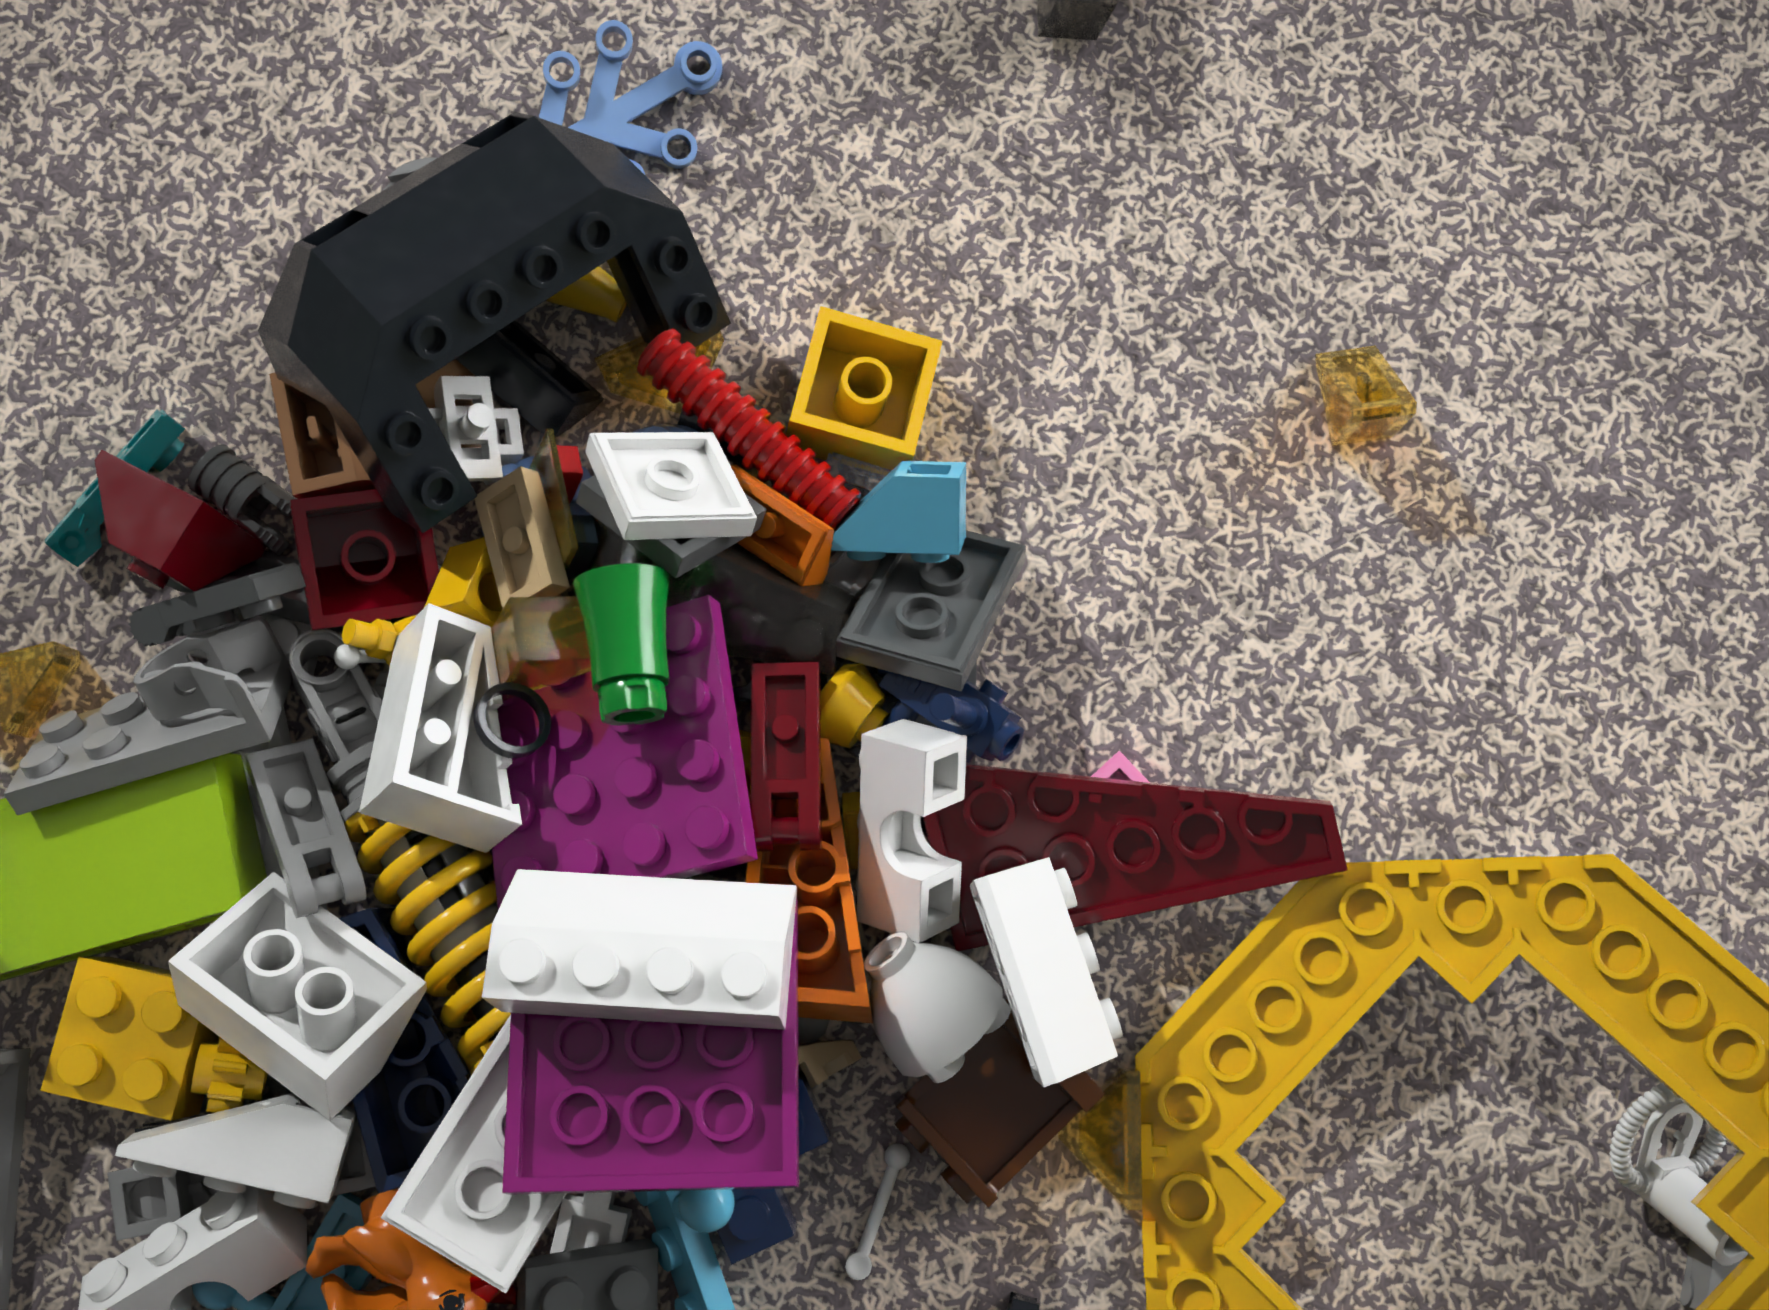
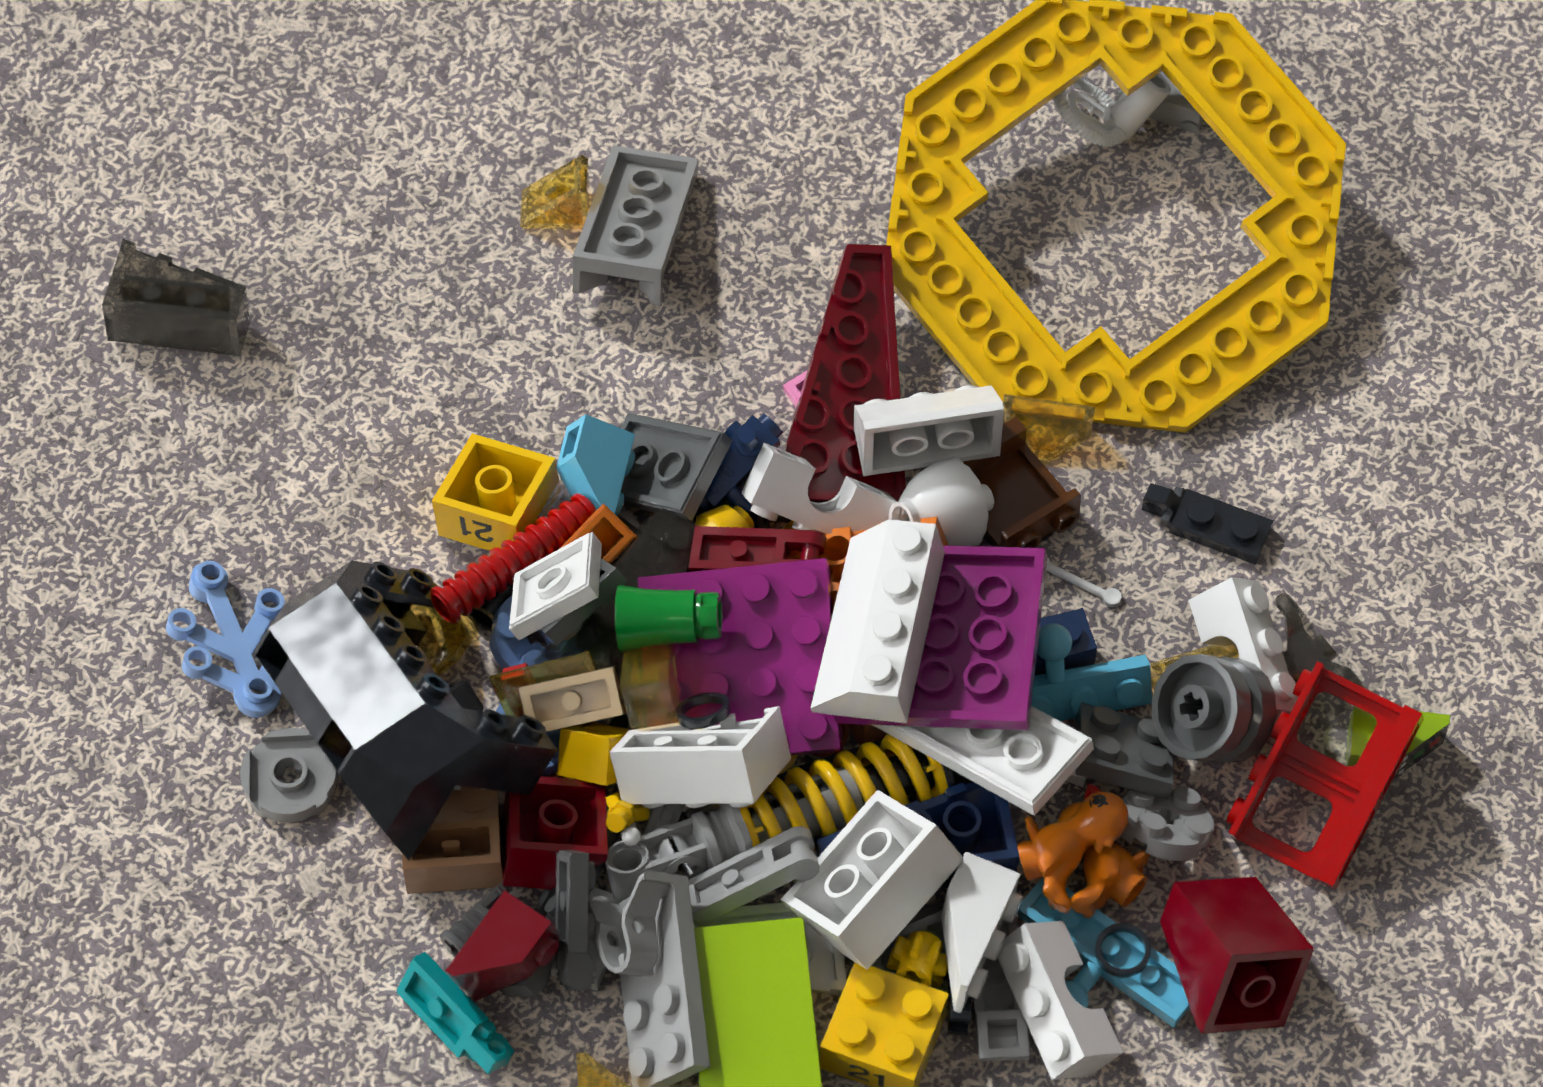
camera: 80 degrees left, 20 degrees down
(1344, 499) = (634, 220): none -> light grey plate

